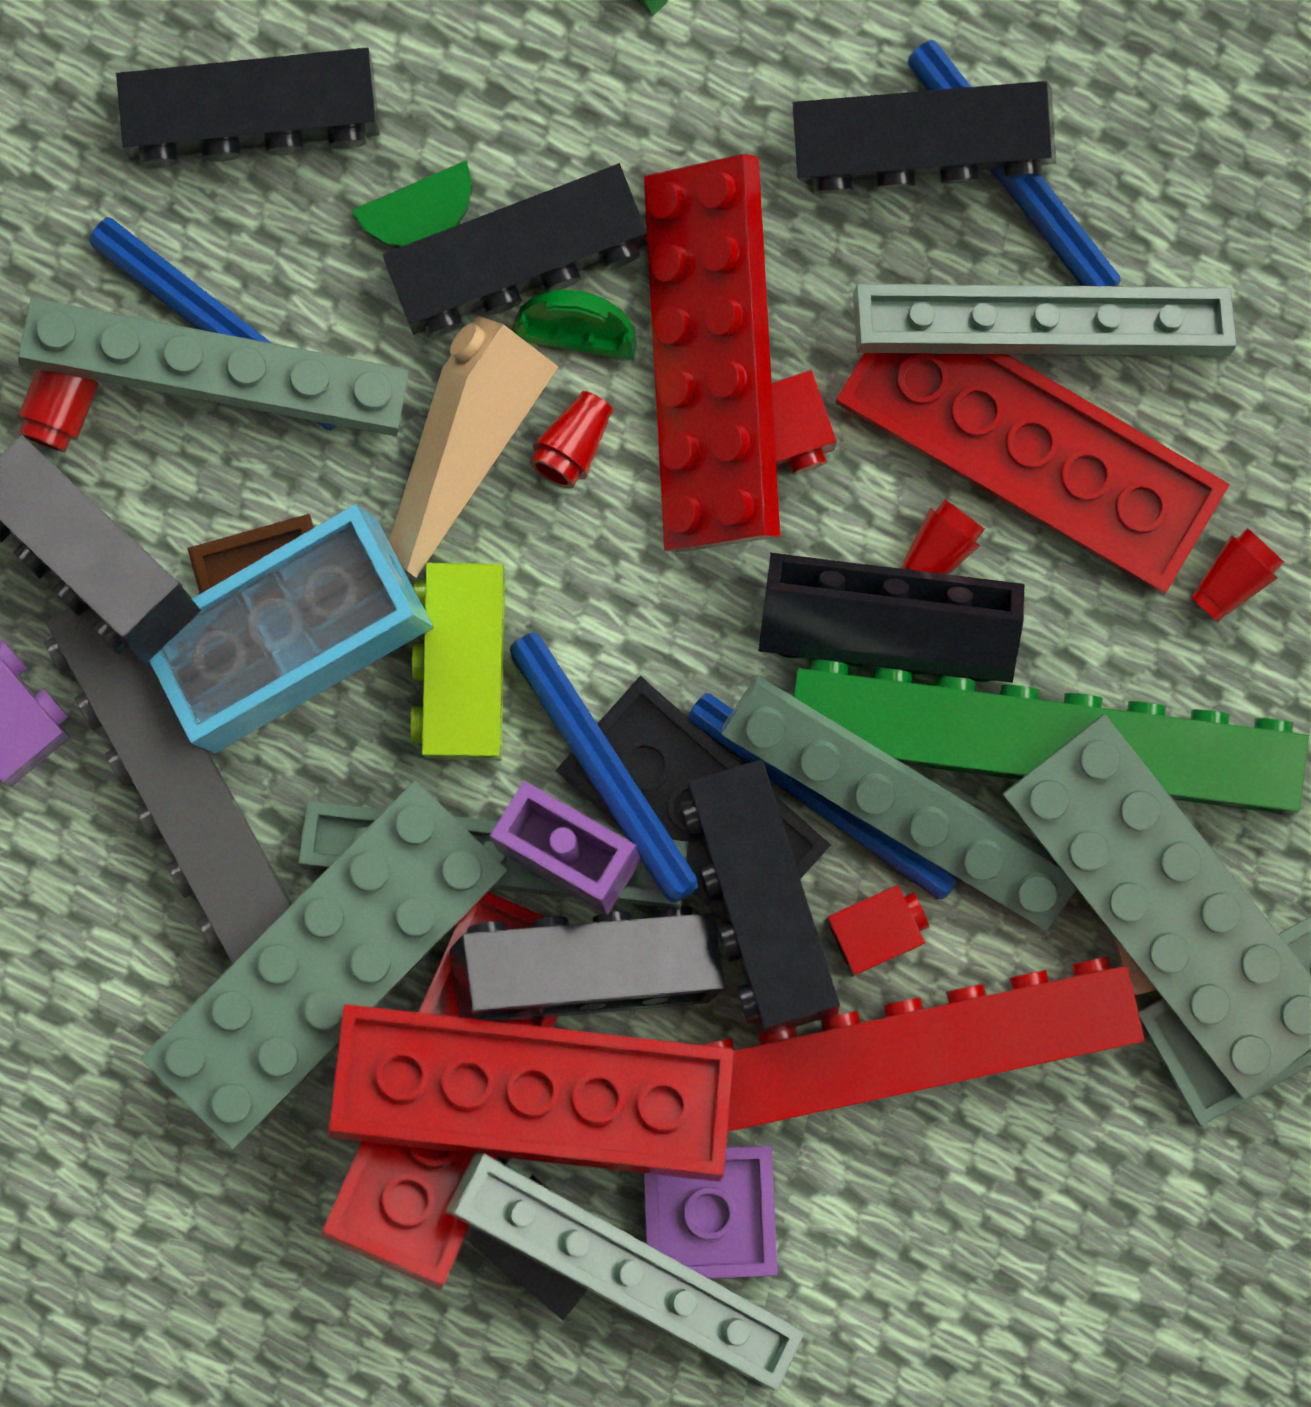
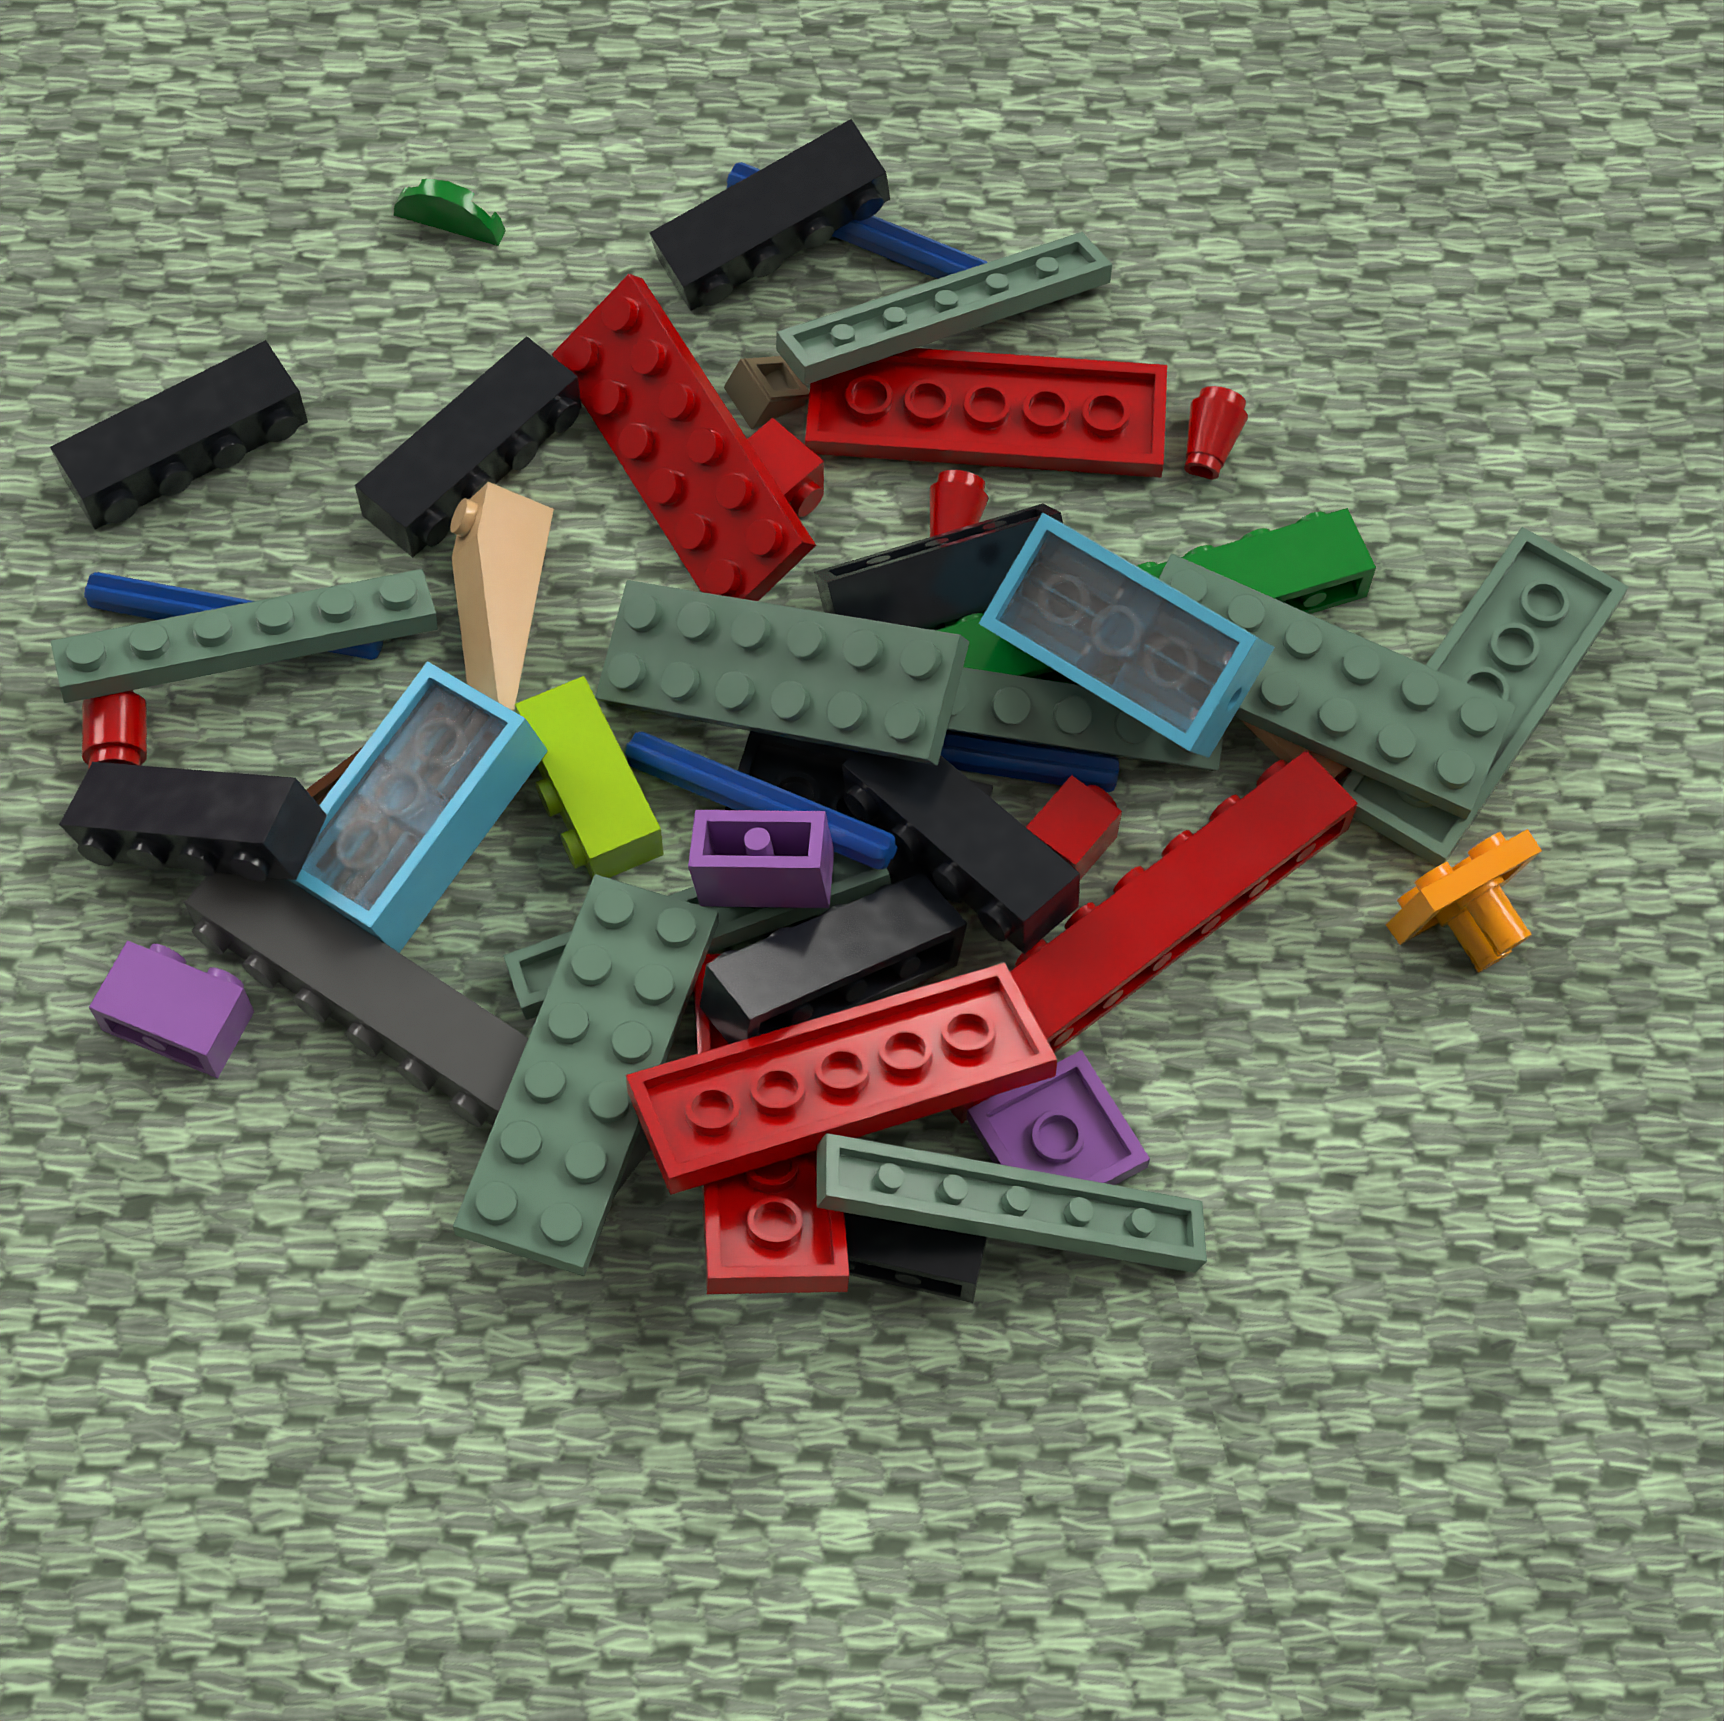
camera: 30 degrees left, 20 degrees down
(418, 208) = (362, 454): green tile -> none
(571, 441) = (594, 572): red cone -> none
(576, 323) = (557, 476): green tile -> none
(679, 660) = (783, 671): none -> sand green plate
(826, 313) = (765, 389): none -> dark tan slope
(1003, 796) = (1126, 636): none -> clear brick
(1193, 1182) = (1471, 900): none -> light orange plate

